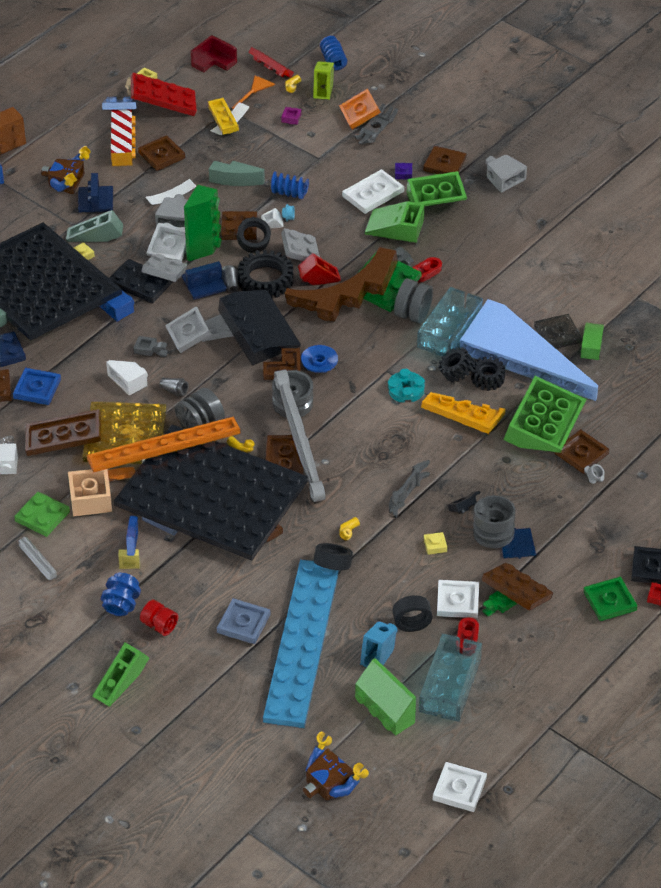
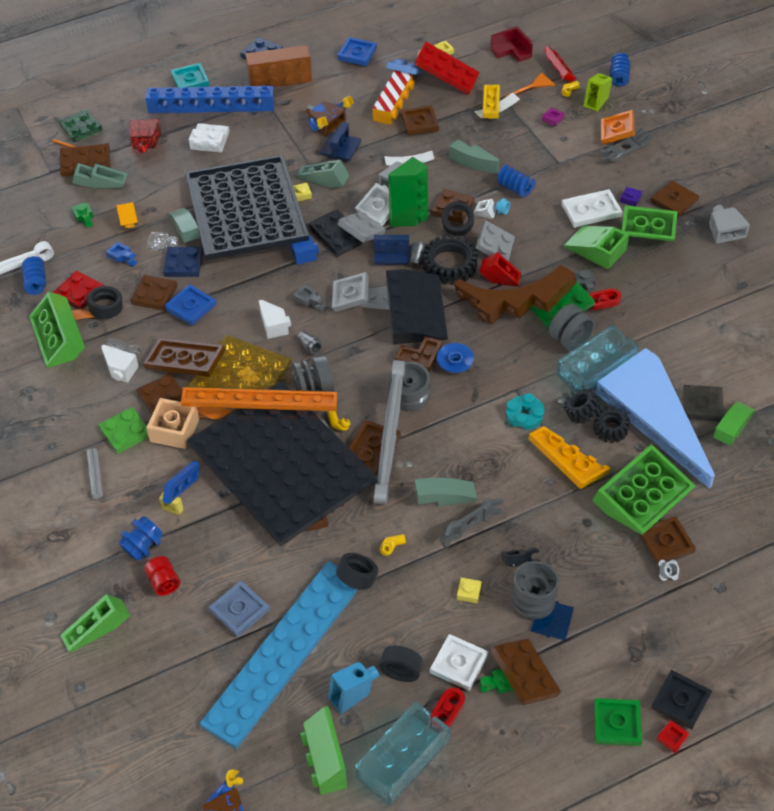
camera: 25 degrees right, 5 degrees up
(54, 473) = (164, 388): none -> reddish brown plate
(57, 101) = (357, 51): none -> blue plate
(370, 472) = (444, 491): none -> sand green slope

